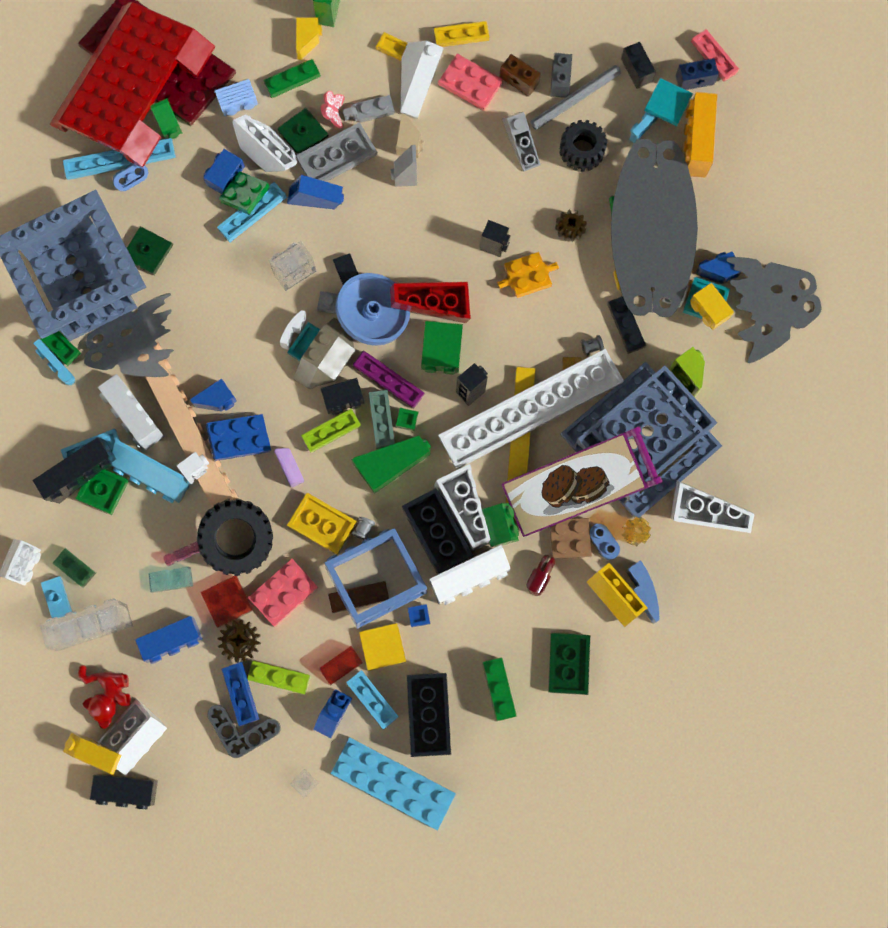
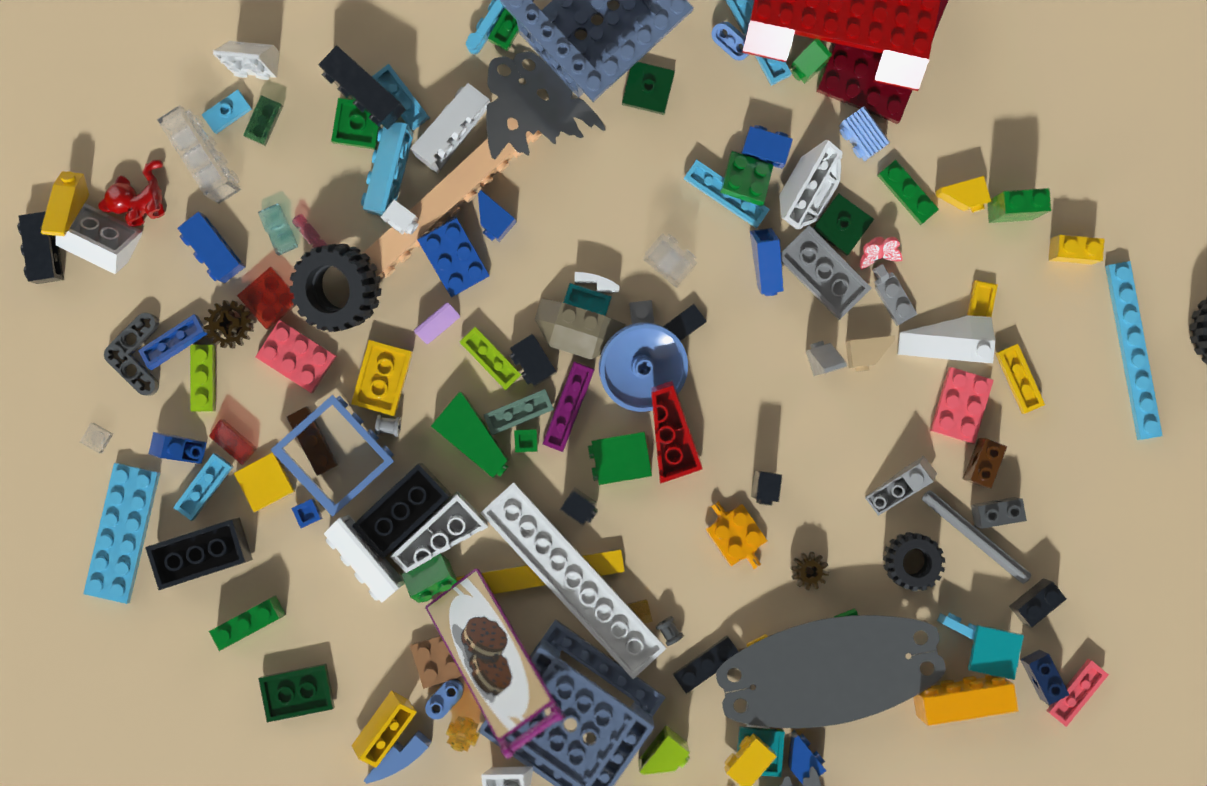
camera: 80 degrees right, 10 degrees up
(539, 579) = (380, 637): dark red arm -> none

